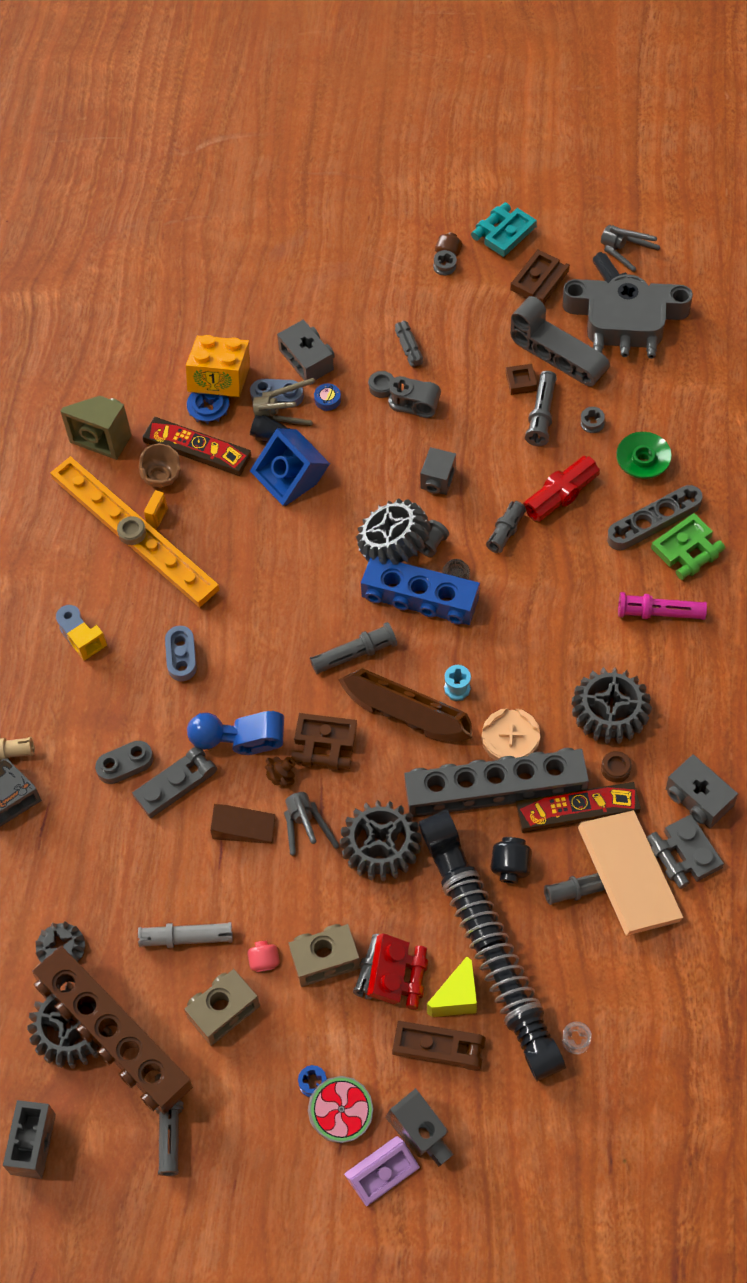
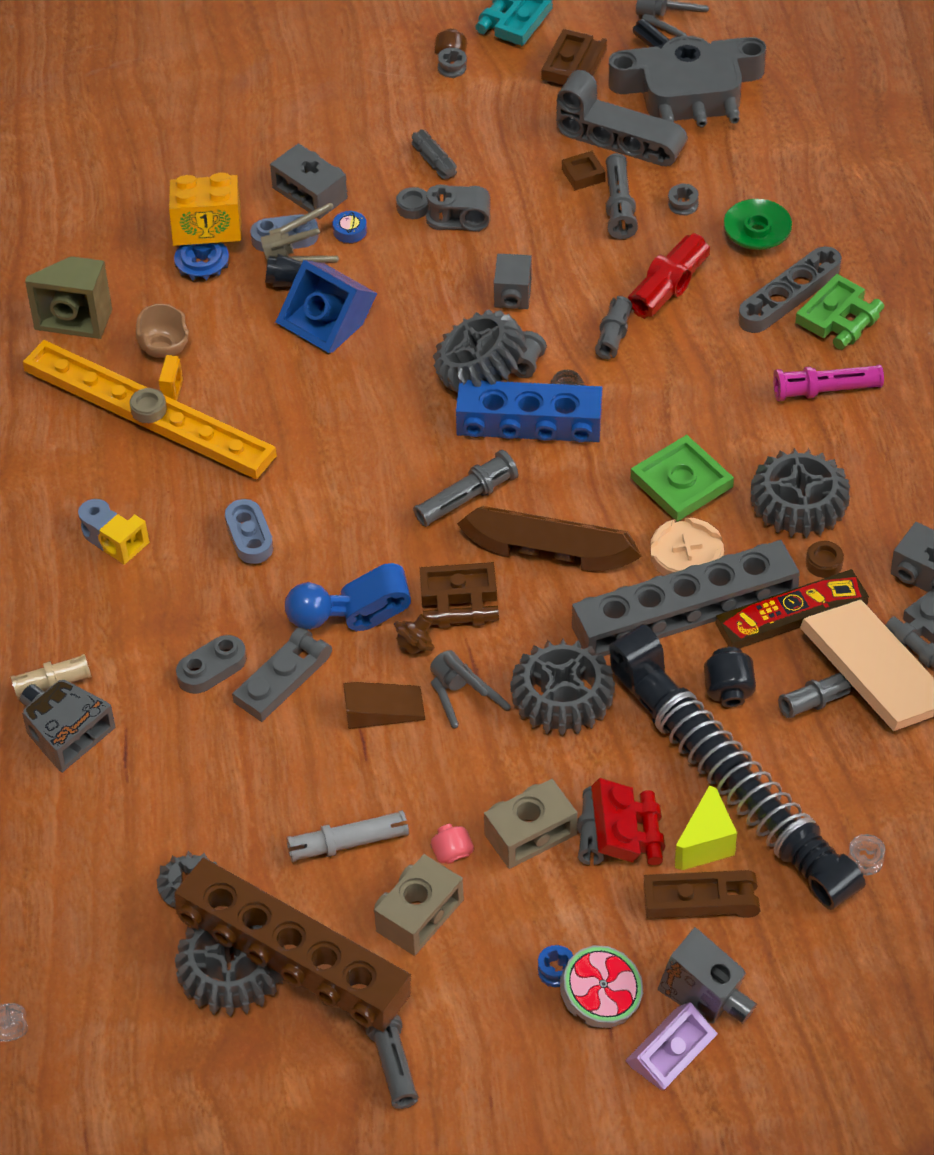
camera: 15 degrees left, 10 degrees down
(29, 1139) = (217, 1095): dark grey brick -> none
(198, 446) = (205, 305): tile -> none
(454, 674) = (605, 497): medium azure bush -> none
(523, 672) = (682, 478): none -> bright green plate

